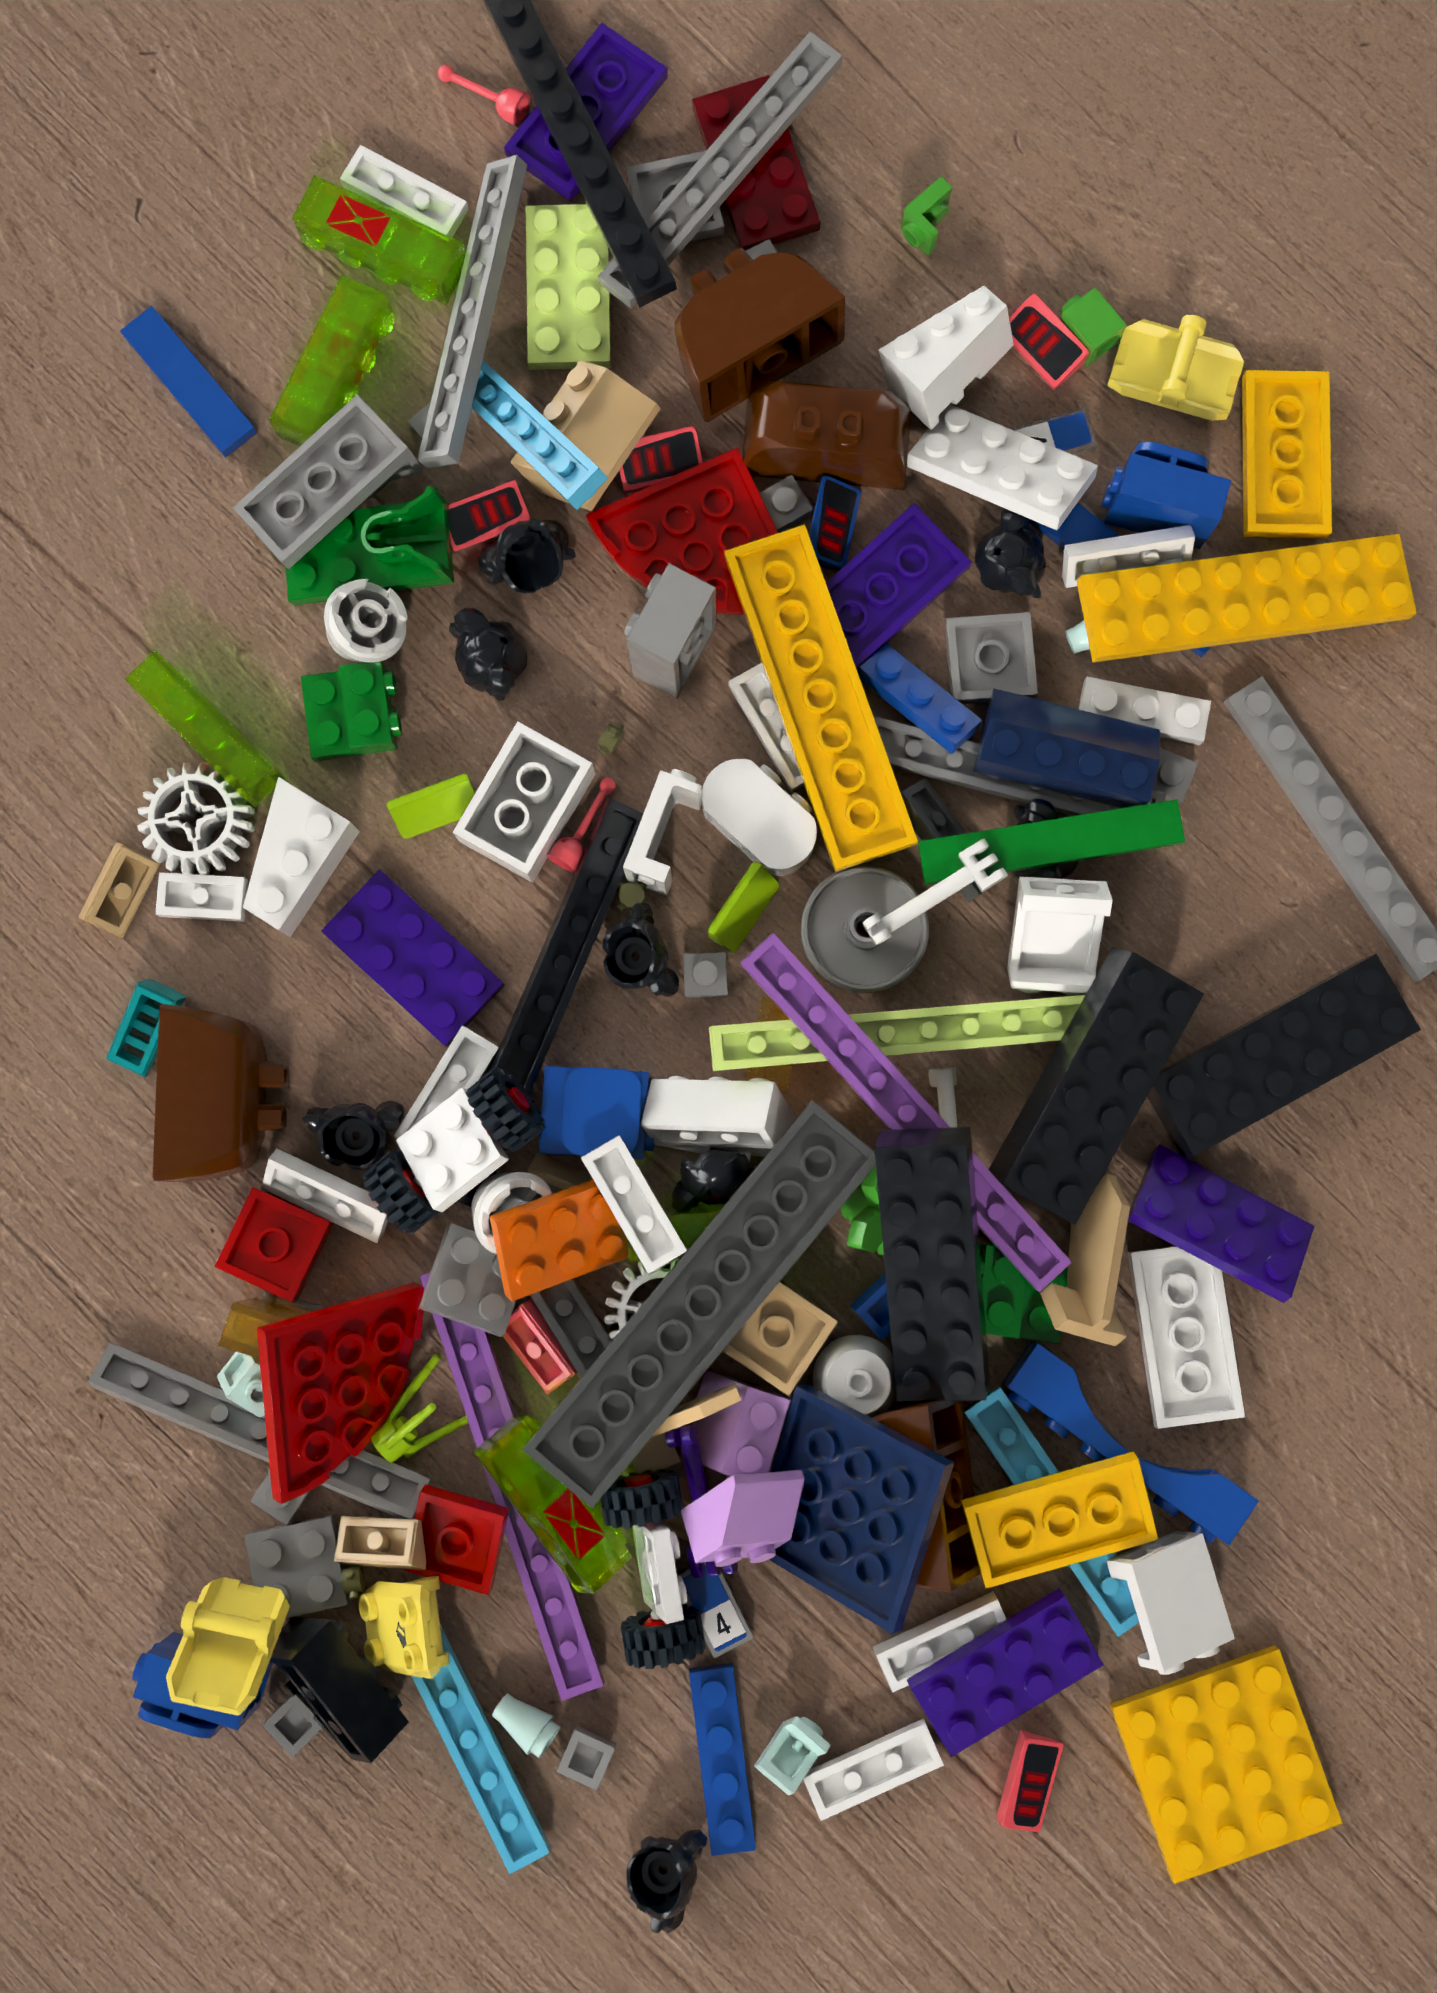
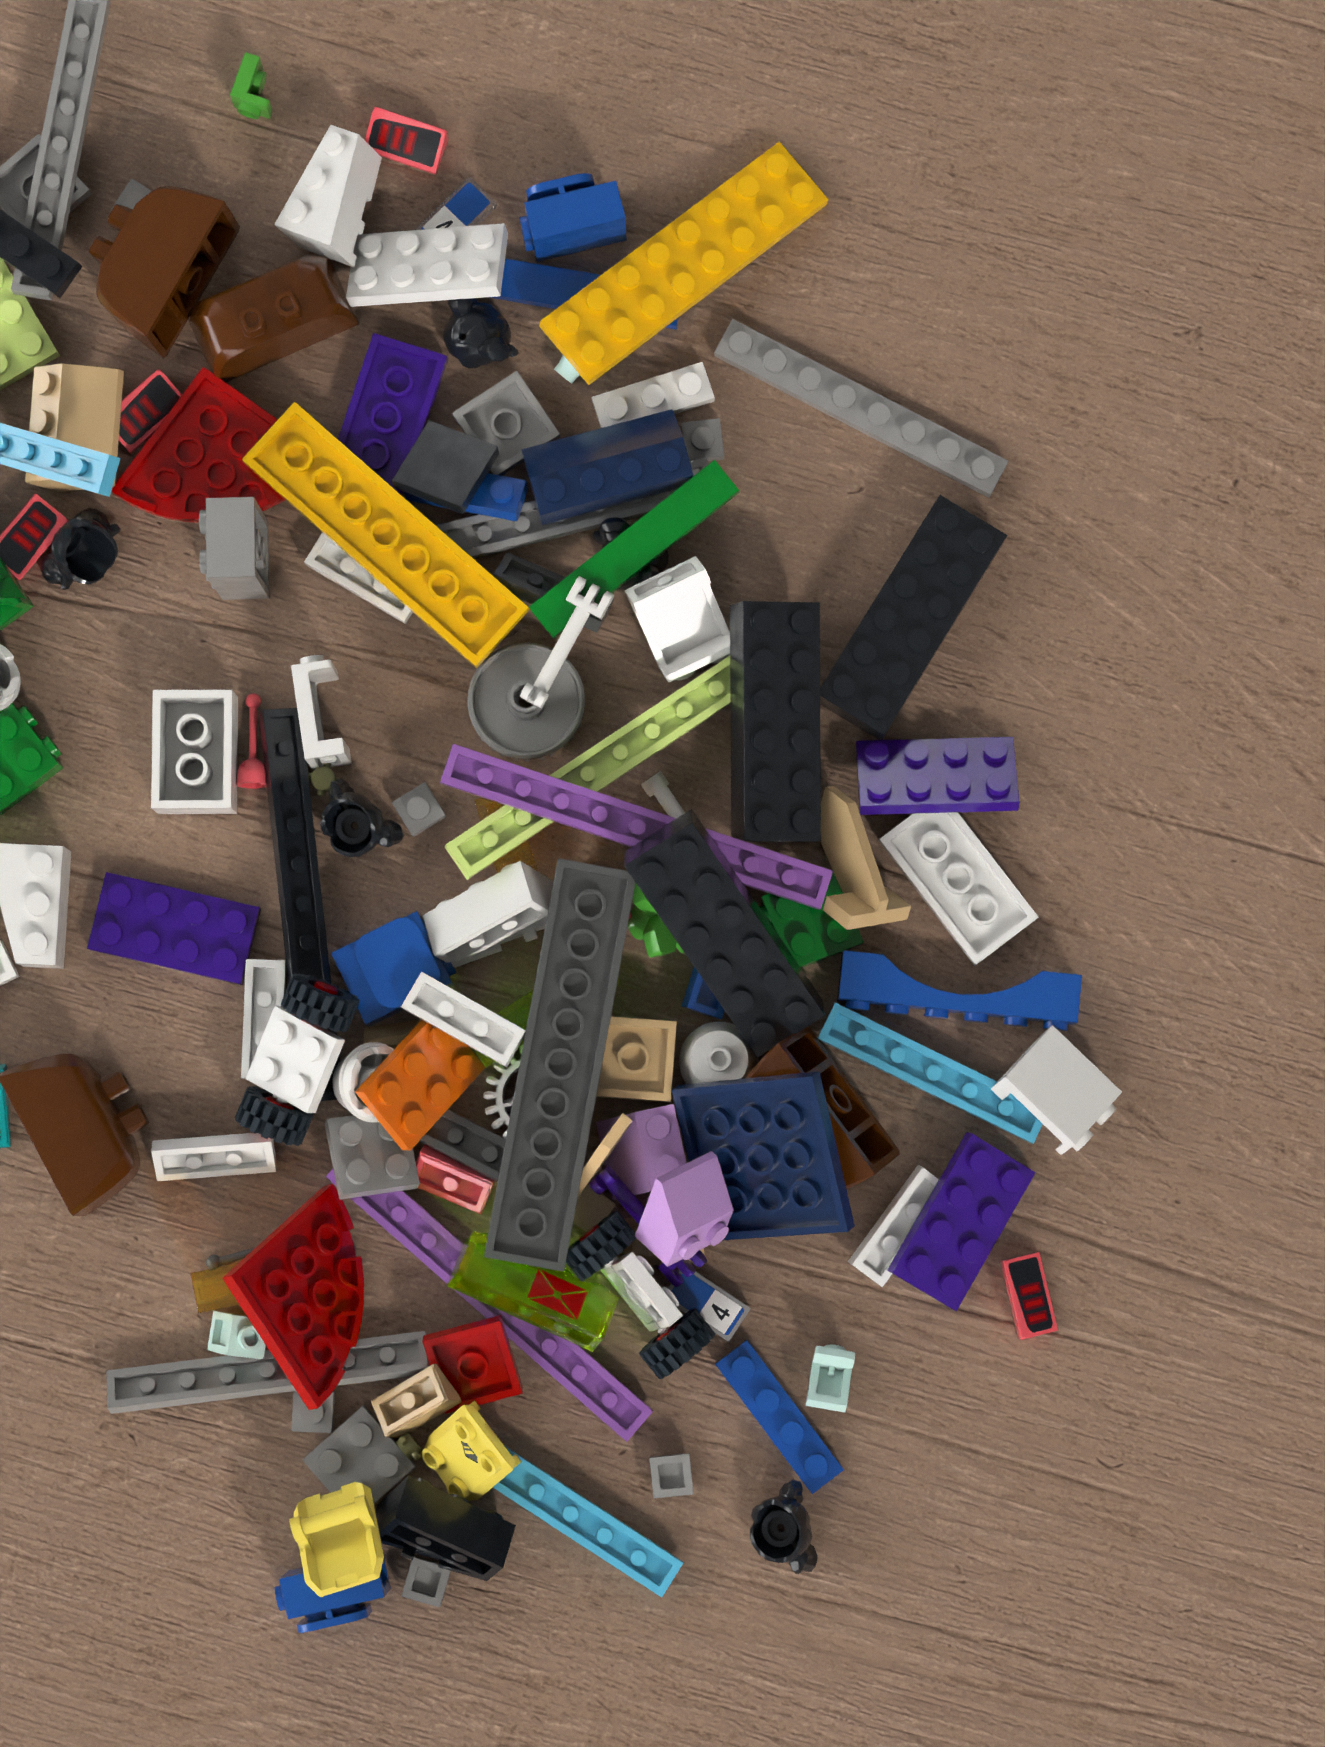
camera: 30 degrees left, 0 degrees up
(274, 1245) = (194, 1218): red plate -> none
(337, 1126) = (191, 1092): black hair -> none
(398, 1435) = (380, 1313): lime plant -> none
(431, 806) = (120, 797): lime slope -> none
(481, 656) = (91, 653): black hair -> none
(526, 1725) = (610, 1477): light aqua cone -> none
(611, 738) = (234, 661): olive piece -> none
(710, 1179) = (513, 968): black hair -> none
(743, 908) = (419, 738): lime slope -> none
(759, 815) = (390, 657): white brick -> none
(774, 195) = (115, 138): dark red plate -> none
(786, 504) = (268, 390): light grey plate -> none
(834, 522) = (316, 384): slope -> none
(872, 1769) = (900, 1355): white plate -> none
(913, 665) = (445, 467): none -> black tile
(1060, 1519) = (934, 1076): yellow plate -> none
(1093, 323) = (436, 105): bright green brick -> none
(1127, 552) = (567, 280): white plate -> none
(1177, 368) = (526, 103): light yellow shield -> none
(1225, 1764) = (1172, 1195): yellow plate -> none
(1286, 454) = (652, 126): yellow plate -> none

